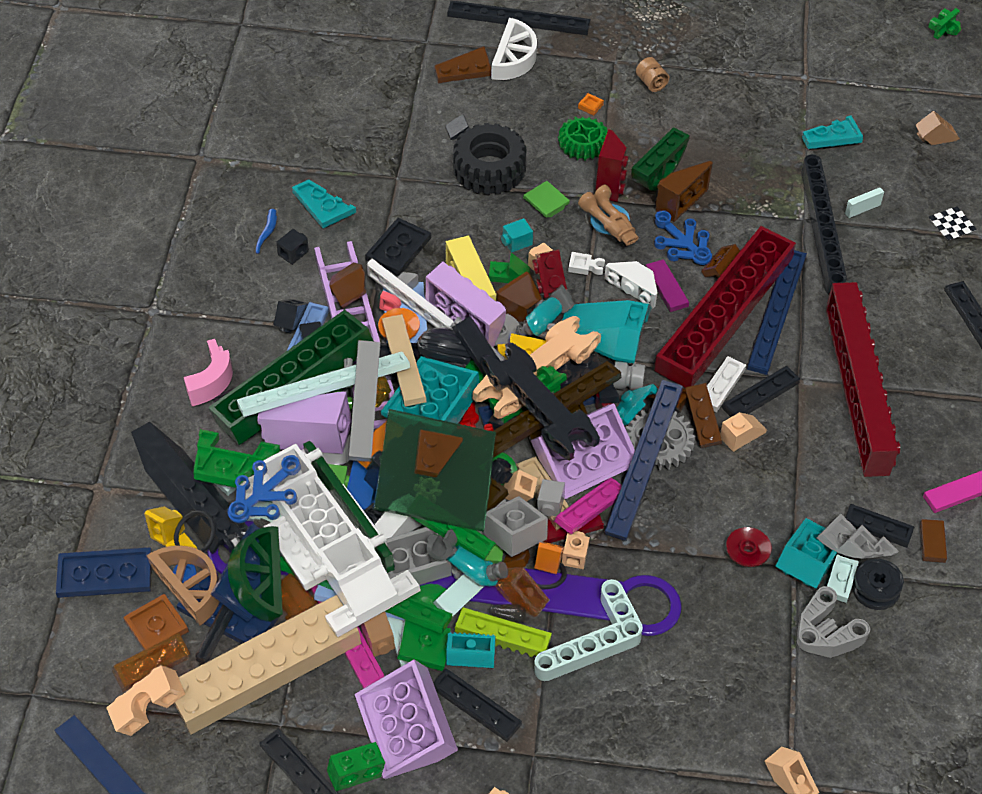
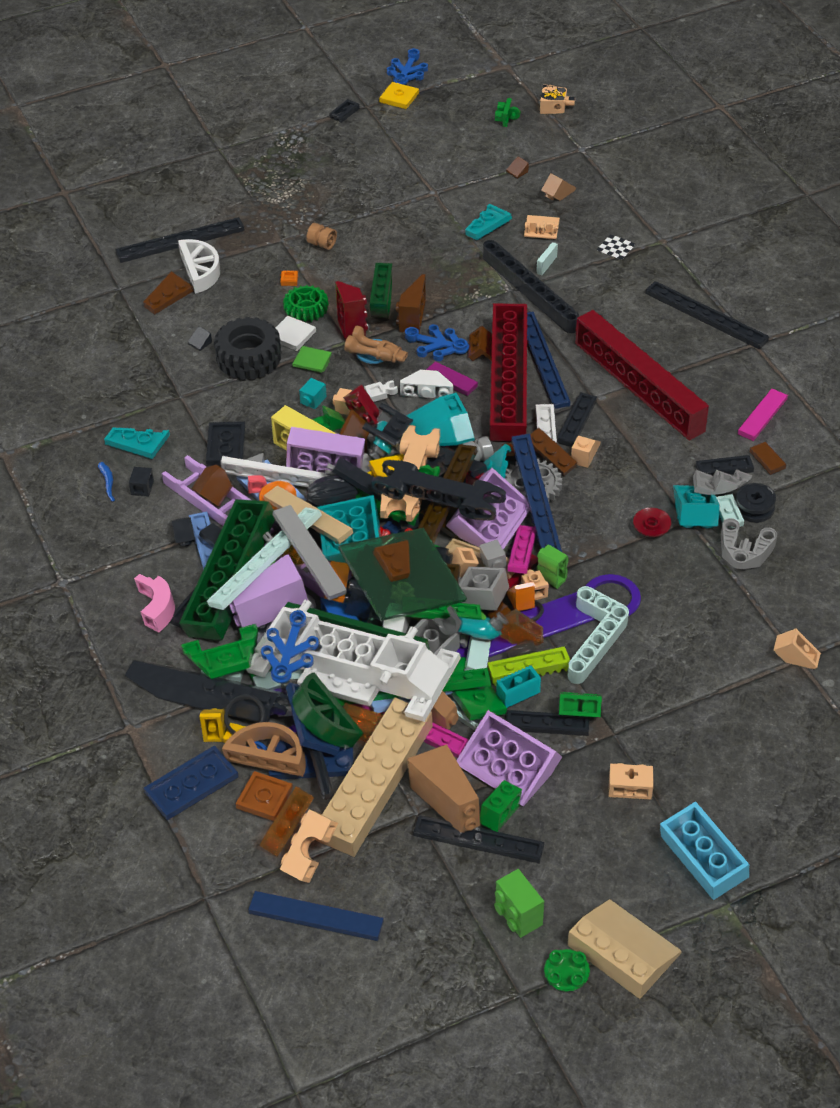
camera: 30 degrees left, 5 degrees down
(318, 710) = (445, 787): none -> medium nougat slope
(516, 704) = (580, 704): none -> green brick
(549, 163) = (294, 332): none -> white tile
(557, 311) = (395, 427): none -> black plate
(604, 540) = (553, 565): none -> bright green brick
(887, 165) = (541, 227): none -> light nougat hinge
(912, 89) = (518, 167): none -> reddish brown slope

